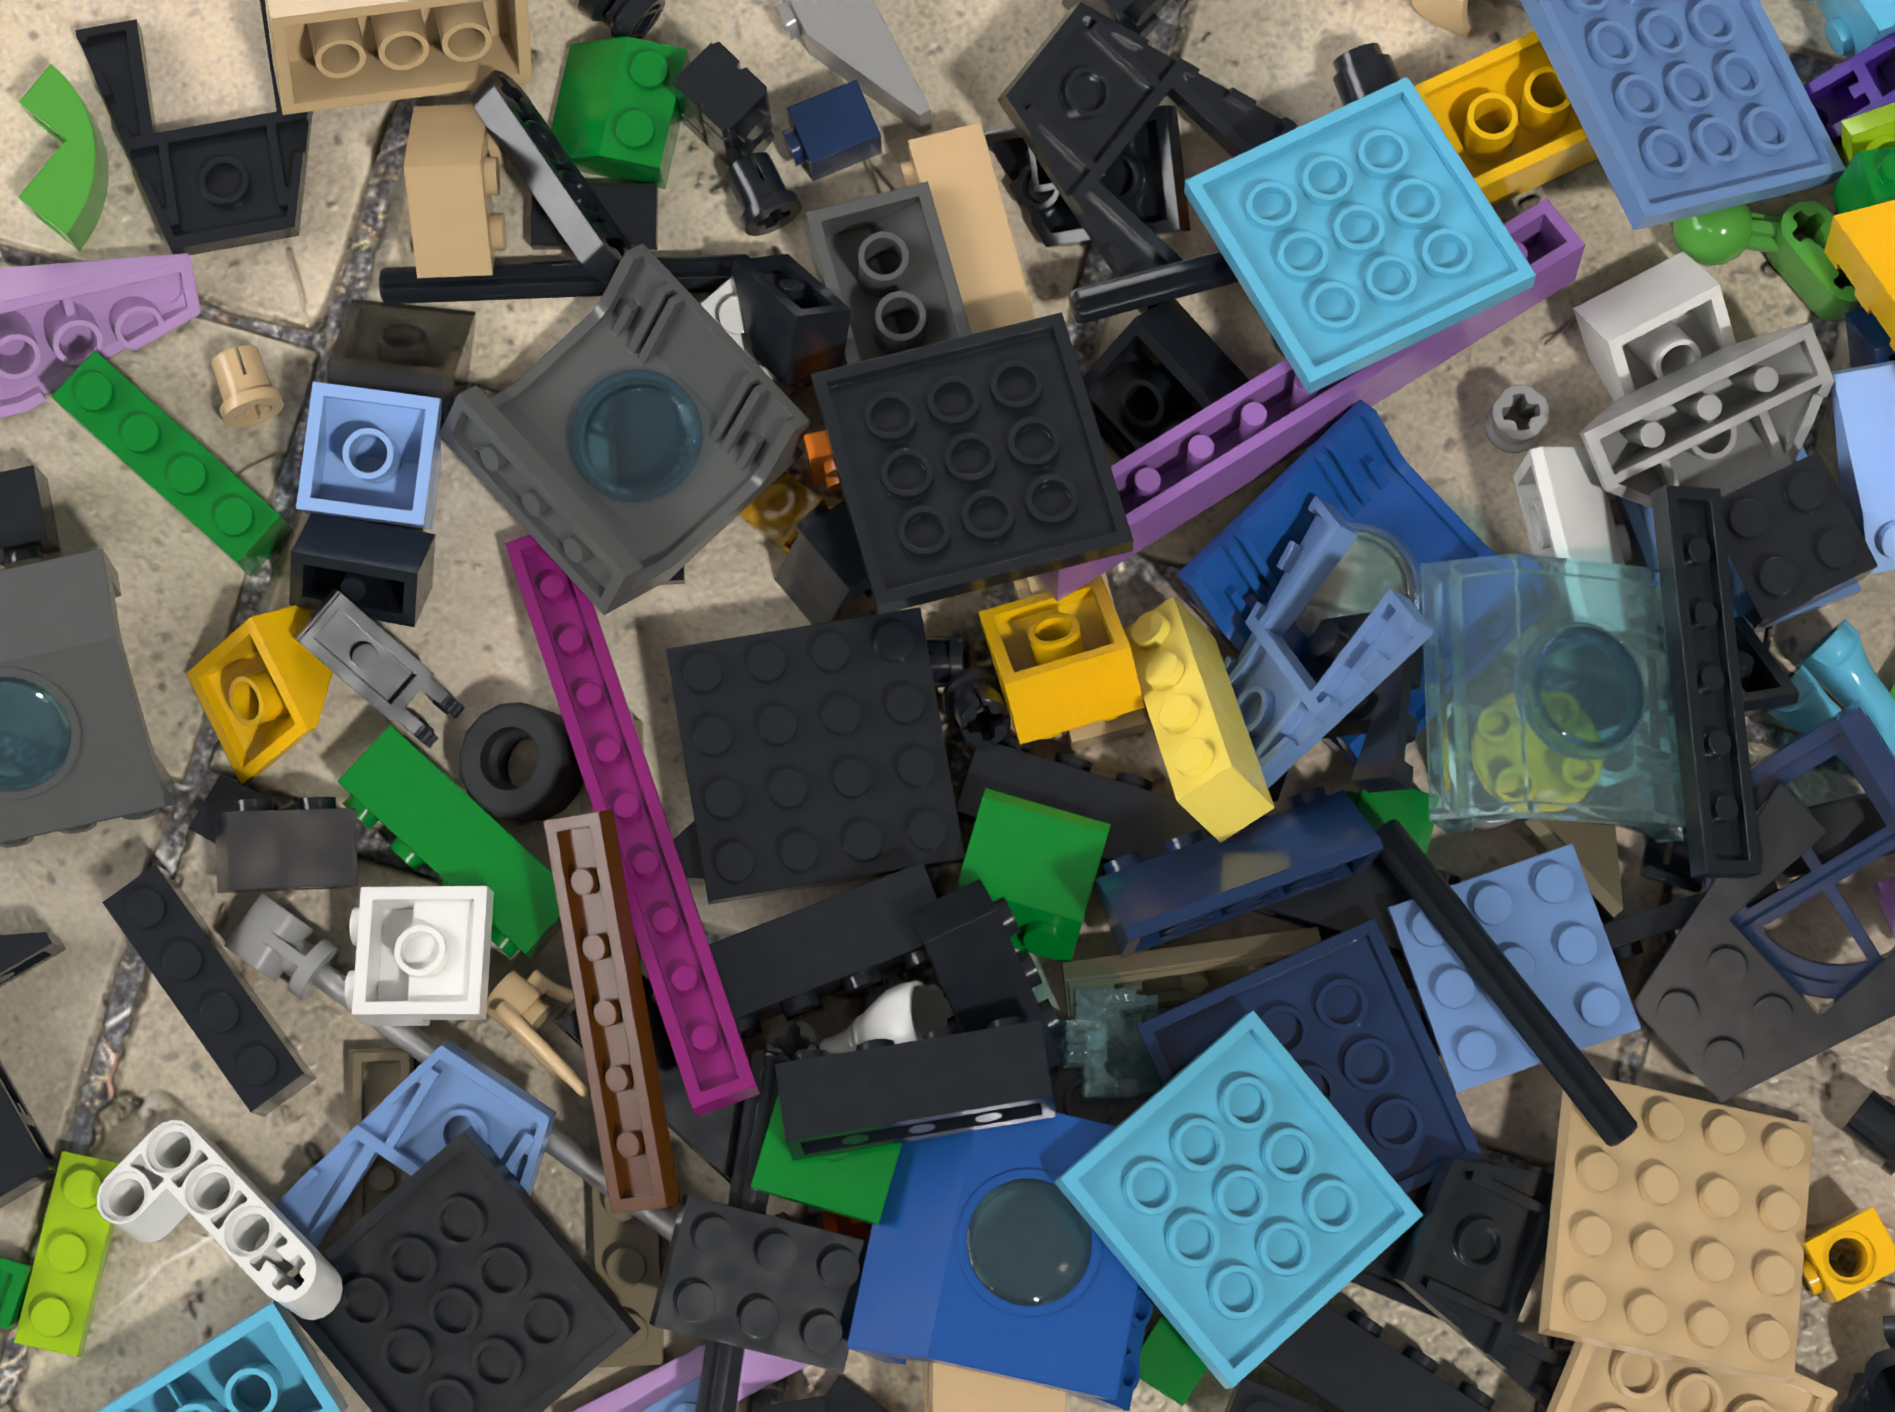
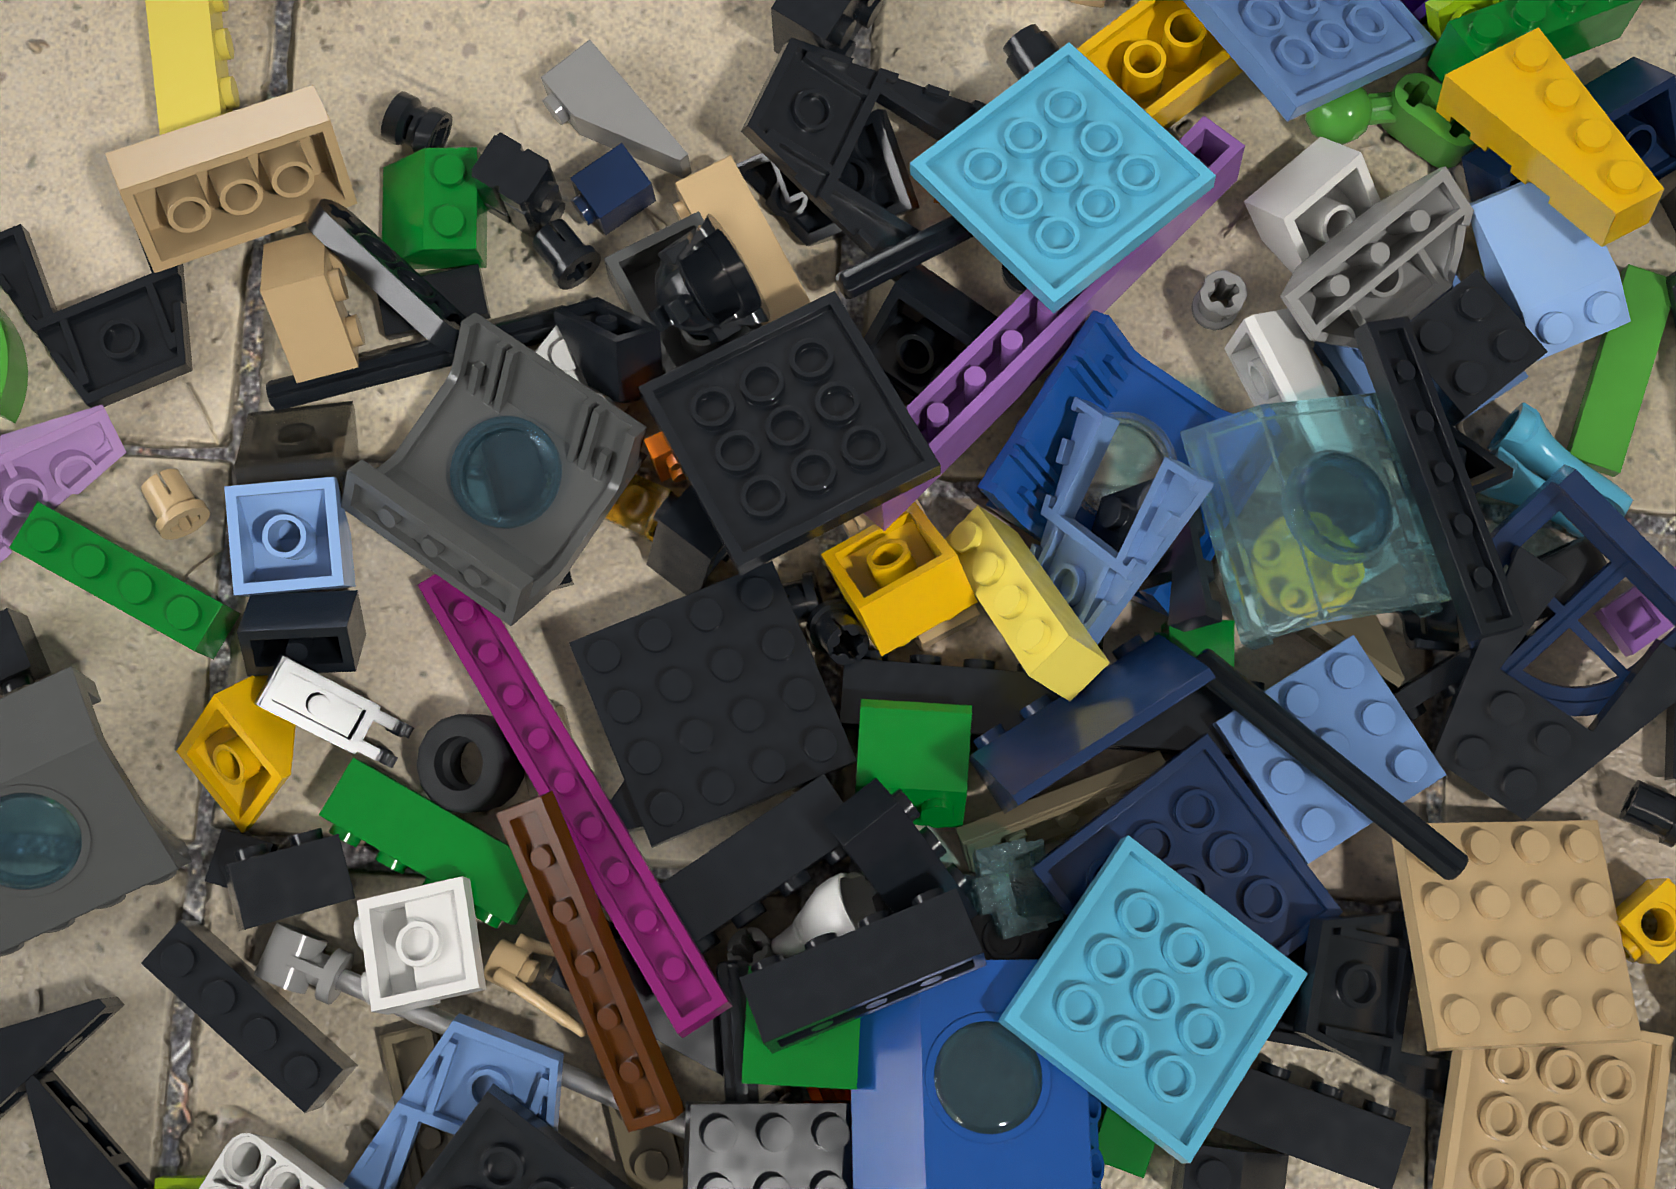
camera: 15 degrees left, 0 degrees up
(917, 273) = (706, 286): none -> black helmet

